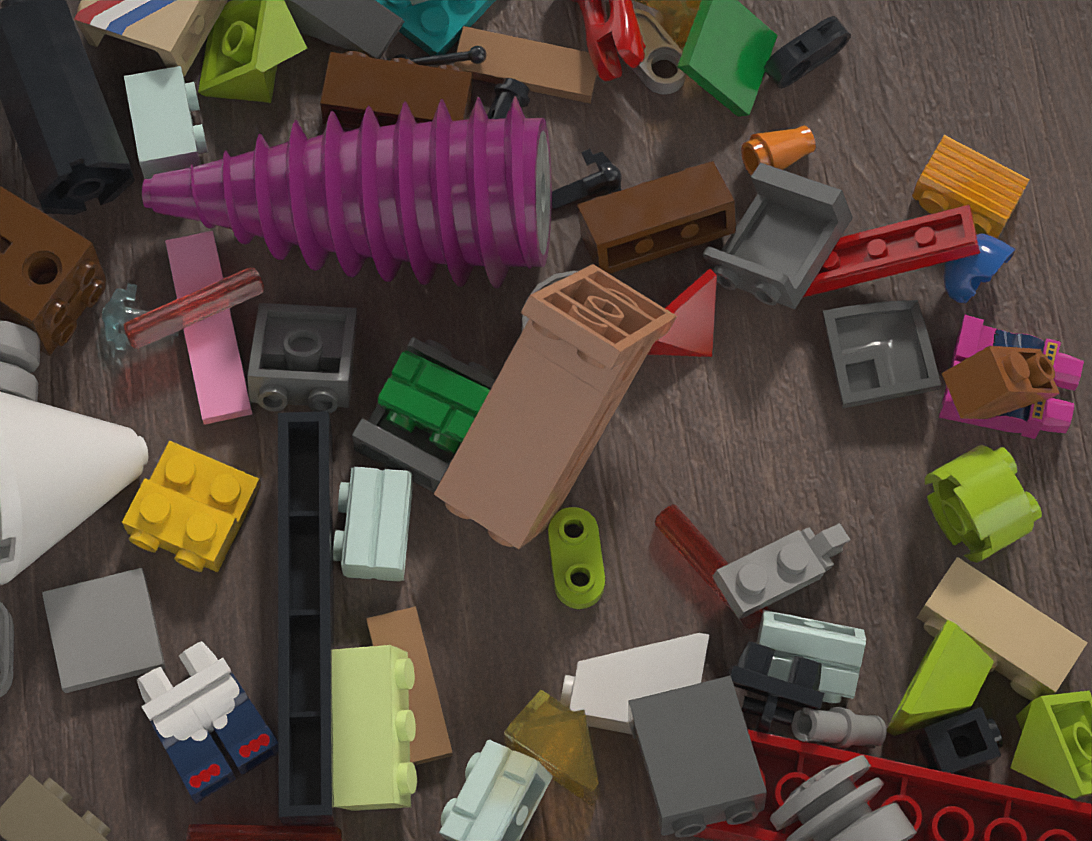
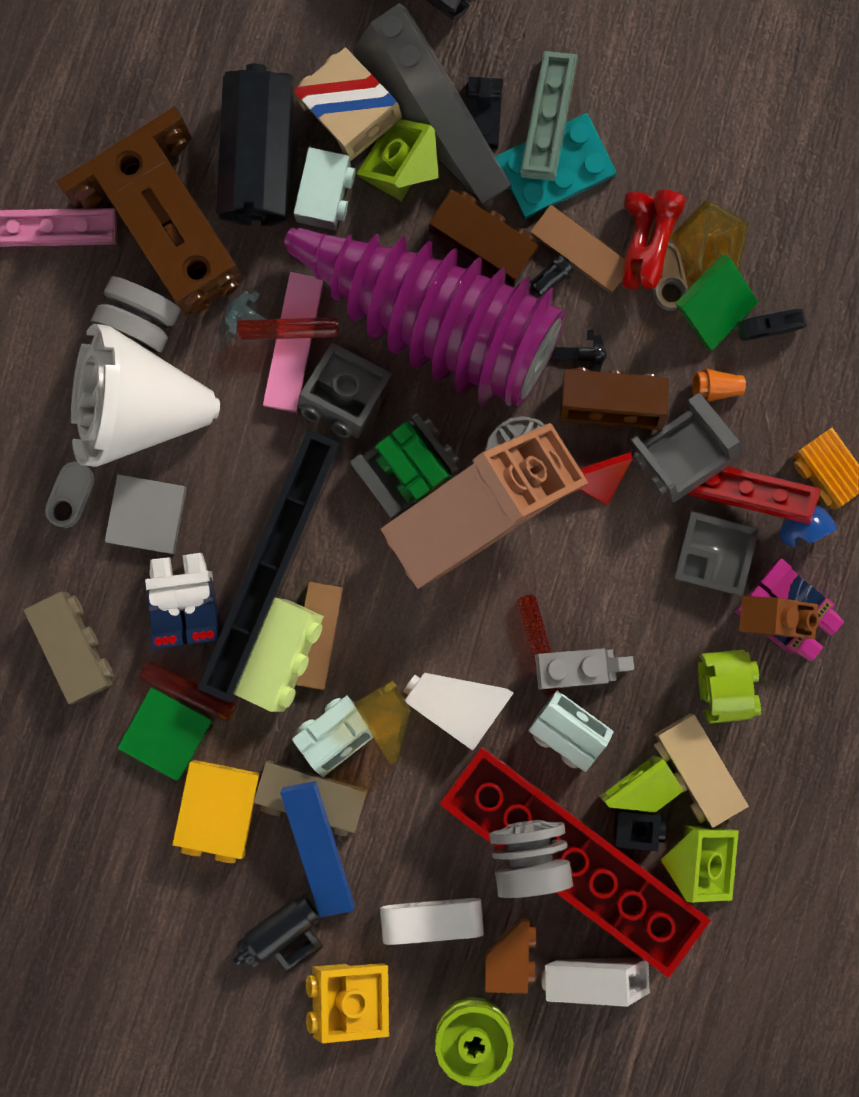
camera: 35 degrees right, 15 degrees up
(190, 508) = (231, 459): yellow plate -> none
(375, 524) = (341, 523): light aqua brick -> none
(476, 54) = (549, 230): black hinge -> none
(575, 556) = (458, 600): lime plate -> none
(698, 757) = (465, 771): dark grey panel -> none
(798, 689) = (550, 755): black hips -> none
(838, 728) = (566, 787): light grey pin -> none

